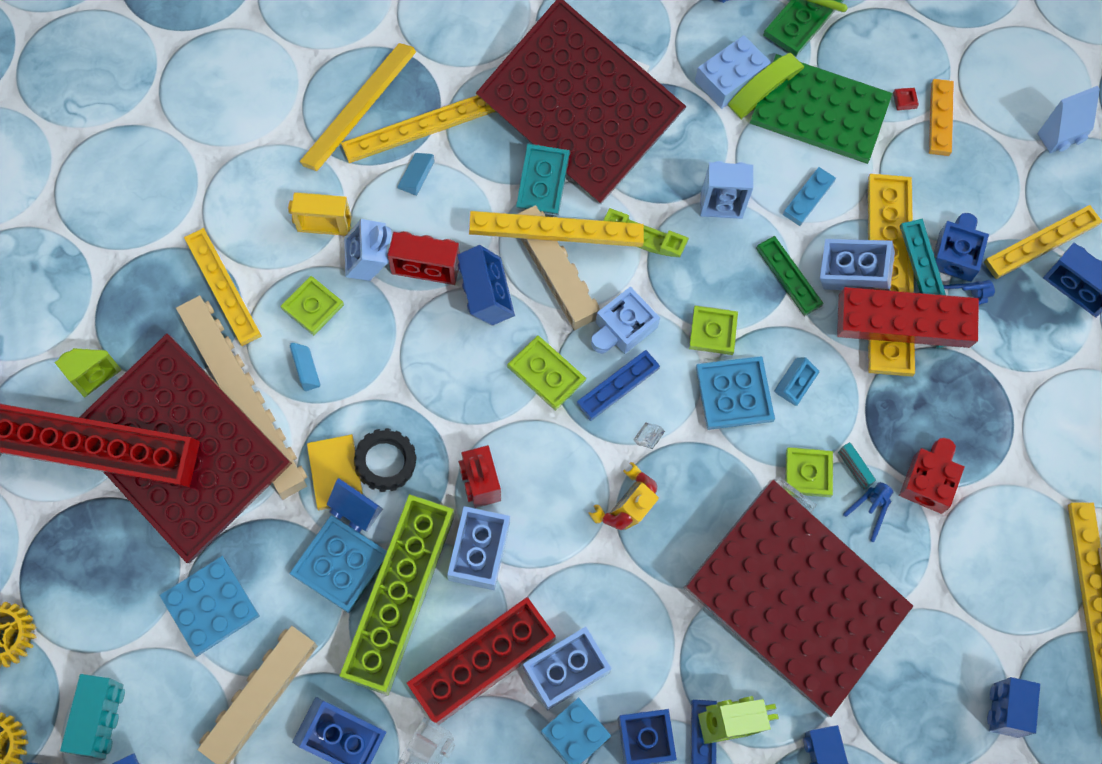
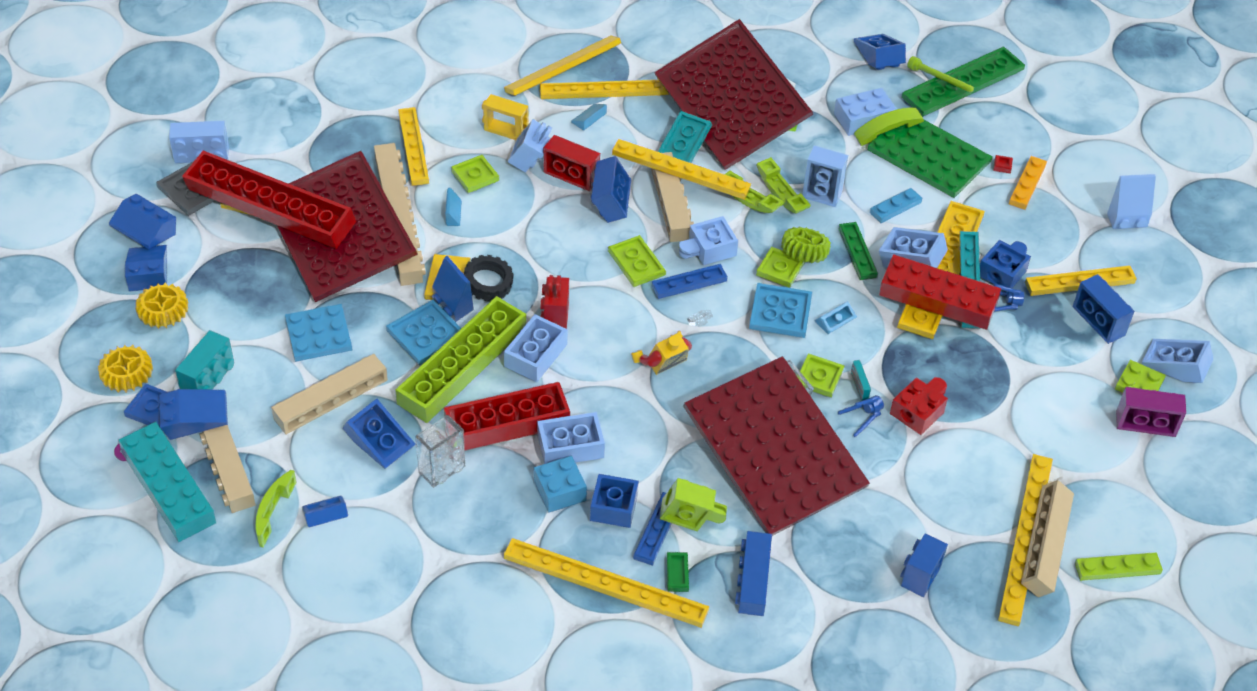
camera: 20 degrees right, 20 degrees down
(87, 368) = (294, 162): lime slope -> none
(675, 214) = (780, 188): none -> lime slope
(739, 293) = (805, 244): none -> lime gear

